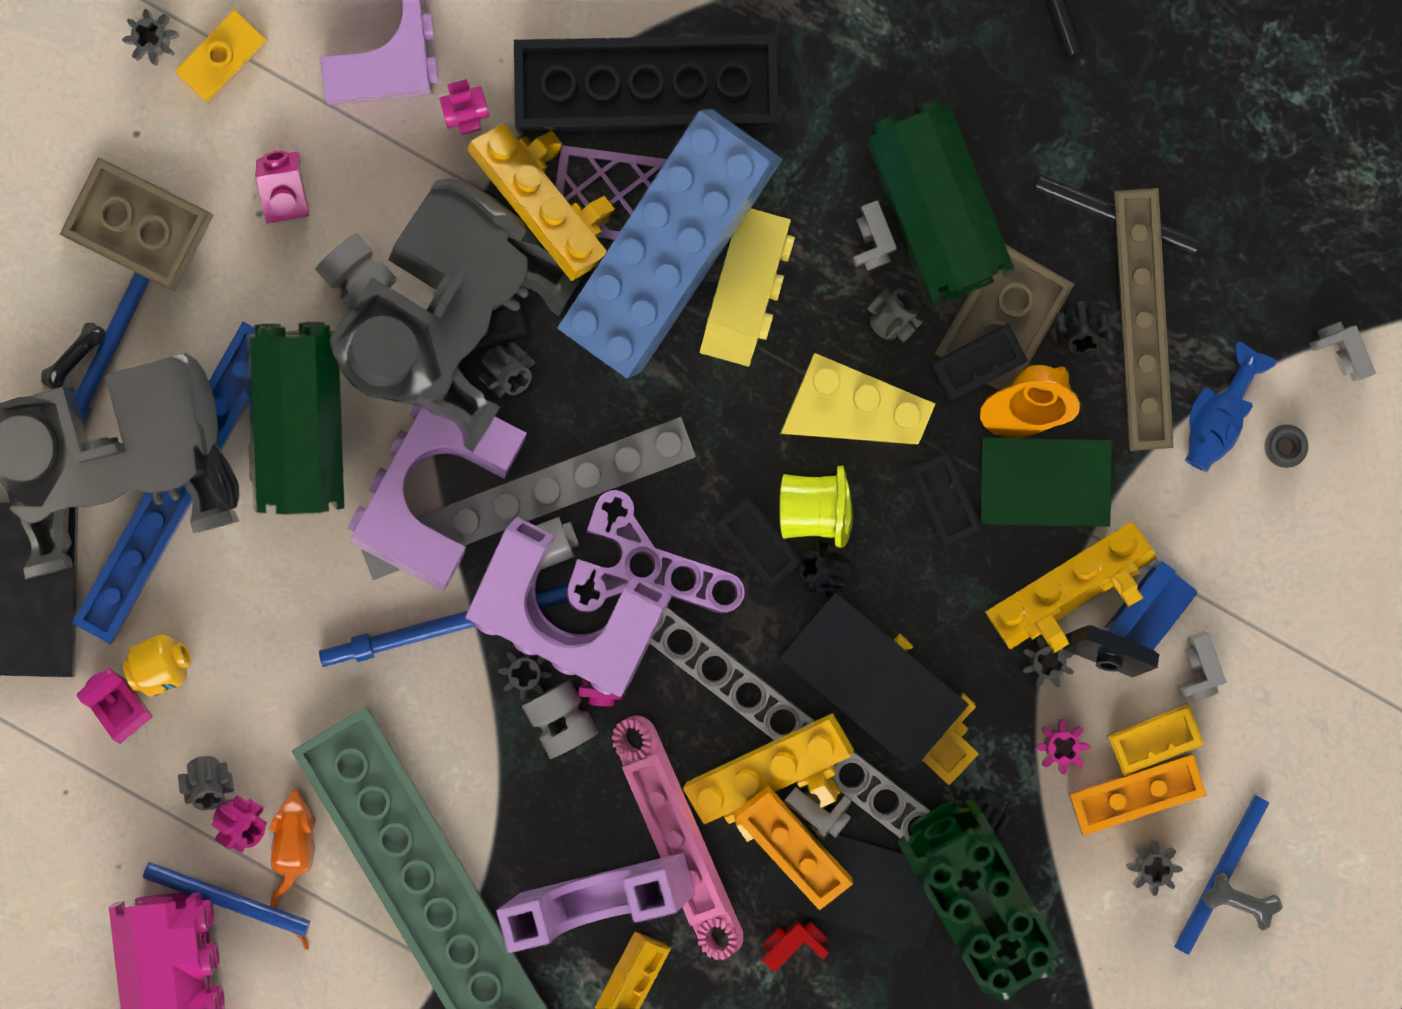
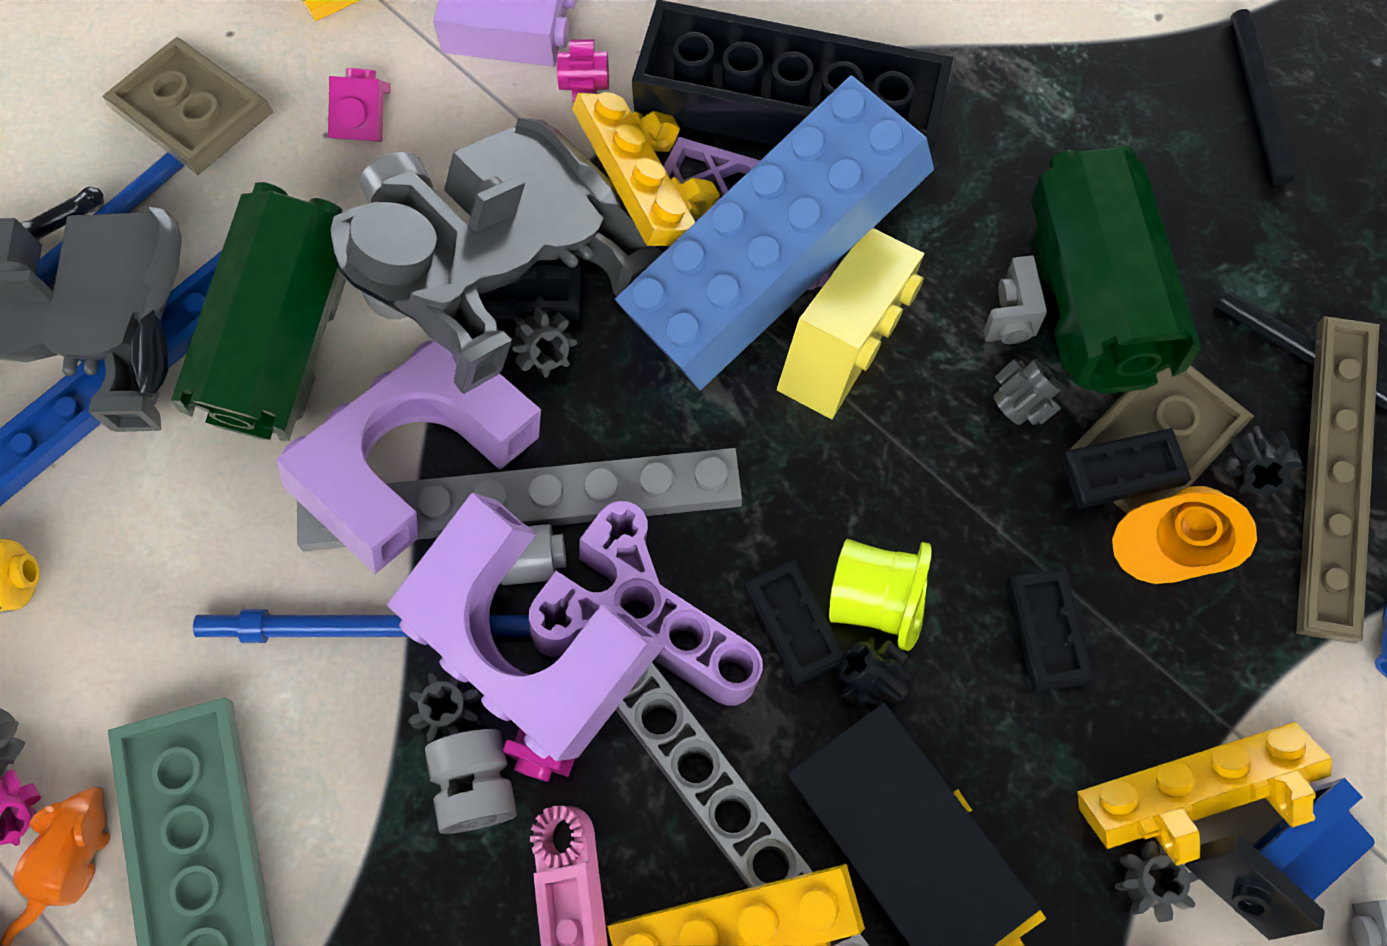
camera: 15 degrees right, 20 degrees down
(854, 406) = (957, 483): light yellow wedge -> none
(1045, 482) = (1185, 644): dark green tile -> none

